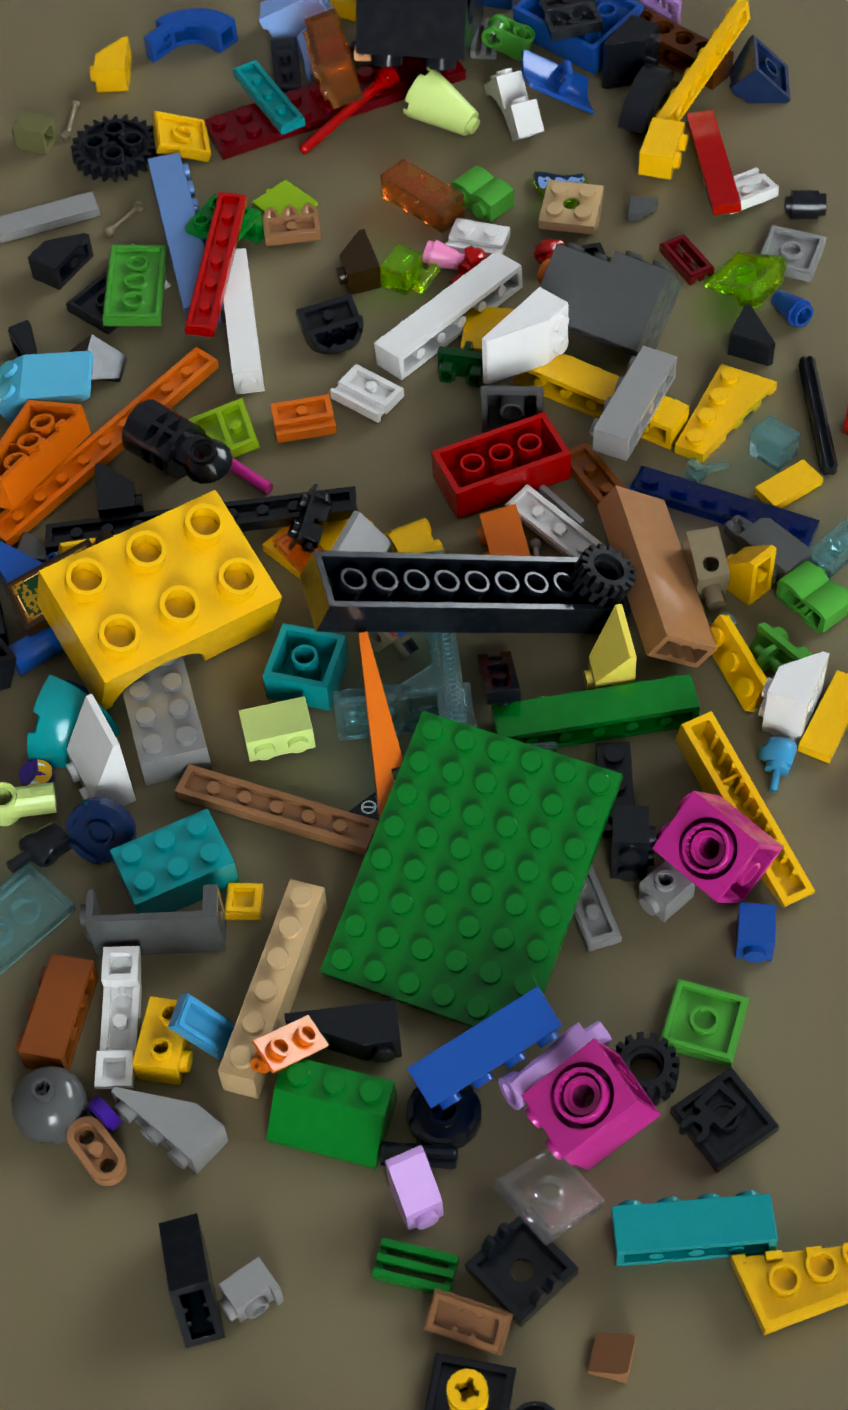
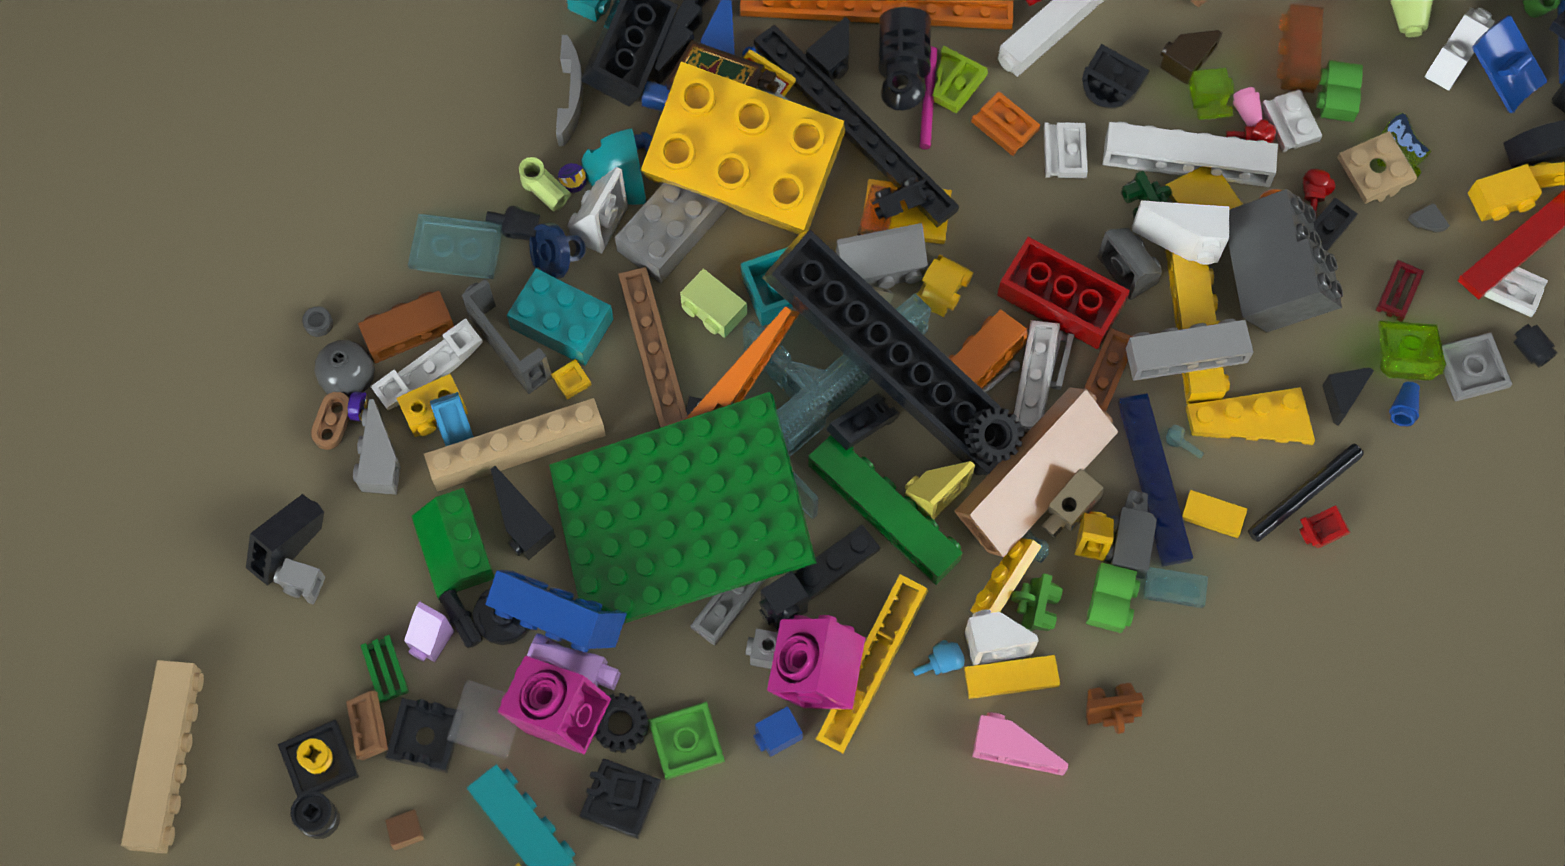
camera: 50 degrees right, 15 degrees up
(33, 547) = (749, 30): dark grey tile -> none
(287, 1046) = (467, 485): hinge -> none
(773, 443) = (1245, 476): clear light blue brick -> none

